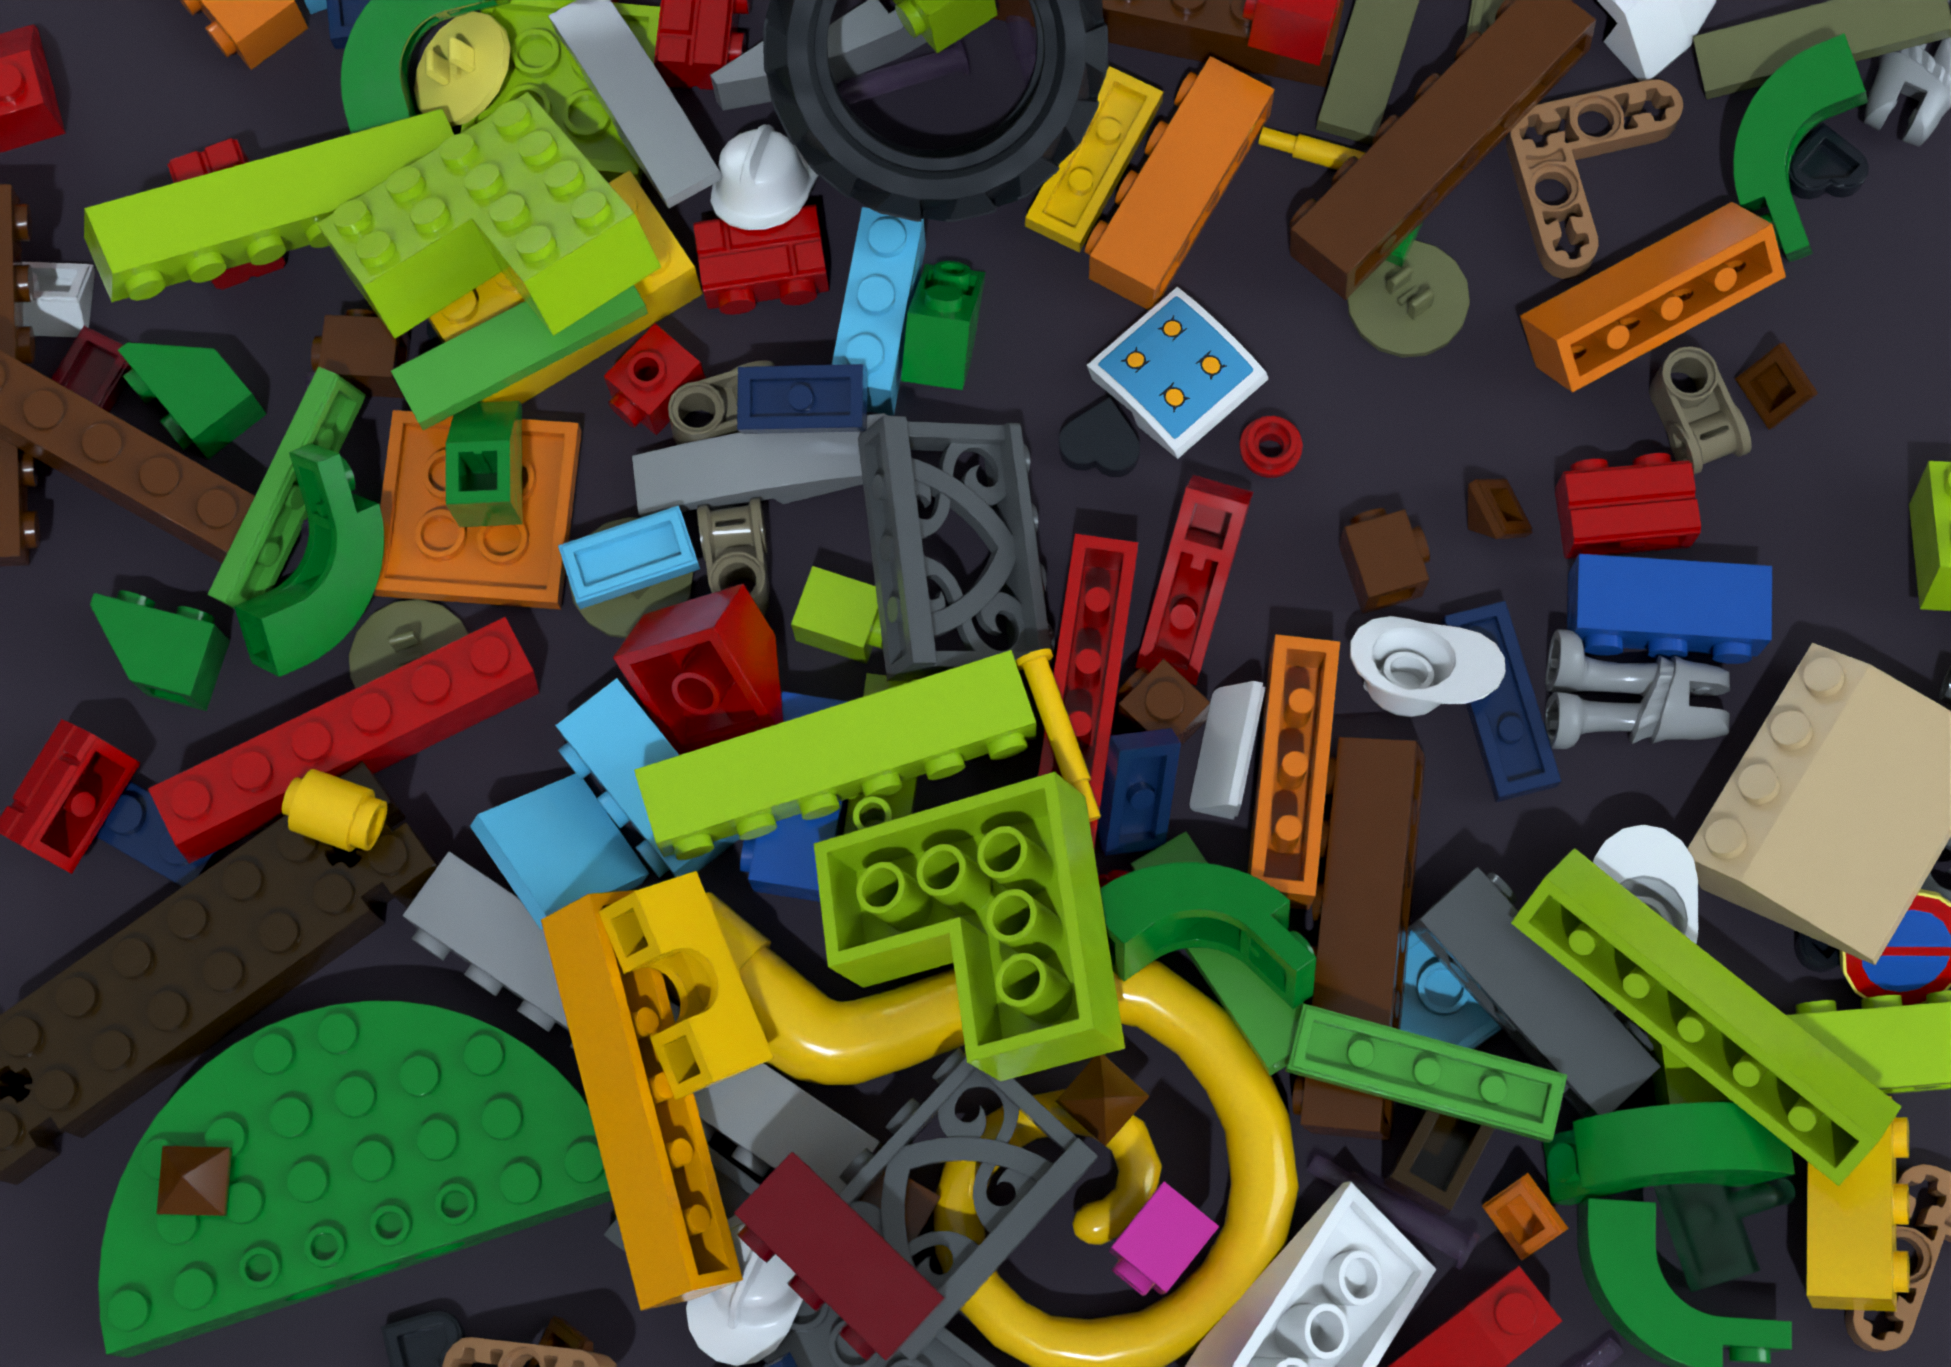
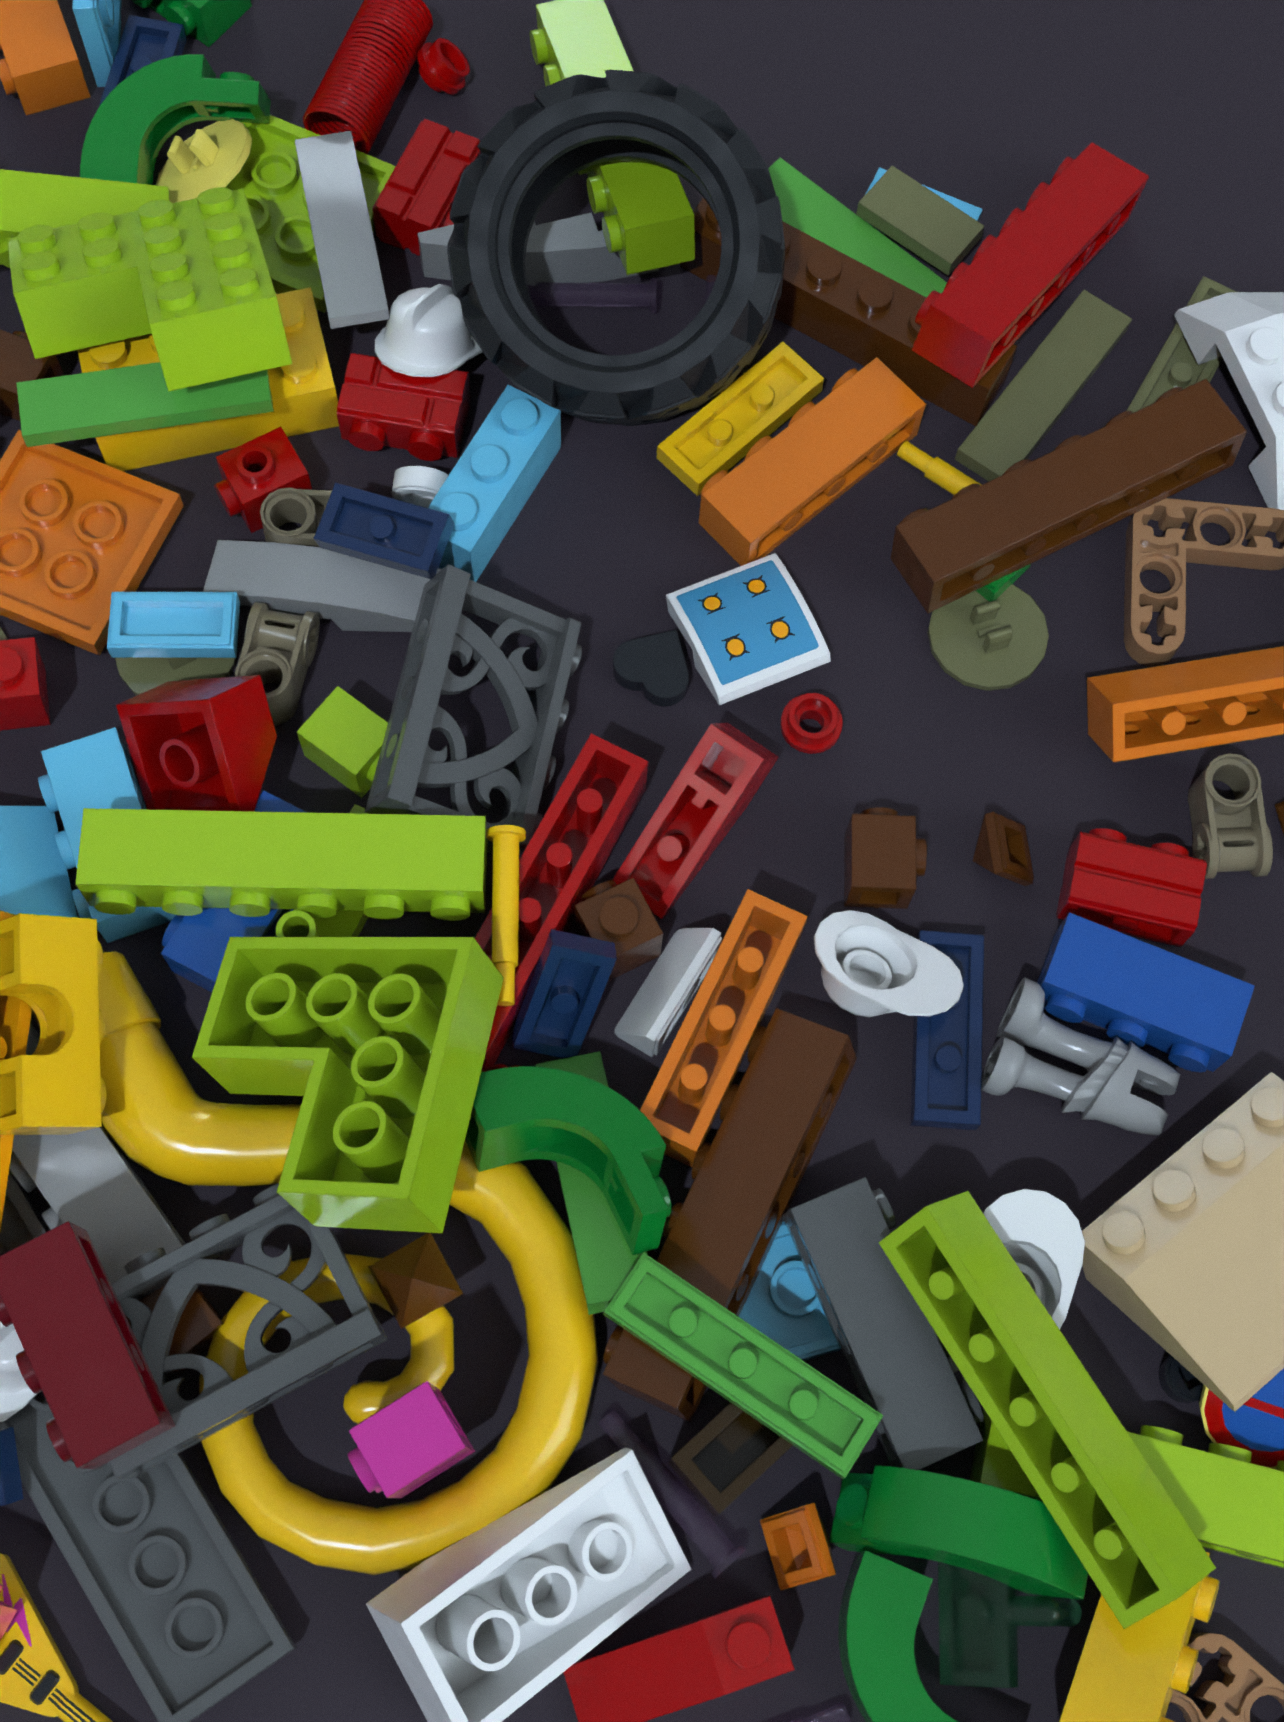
camera: 10 degrees right, 5 degrees down
(485, 465) = (71, 498): green slope -> none
(809, 336) = (417, 484): none -> white tile
(942, 325) = (544, 516): green slope -> none

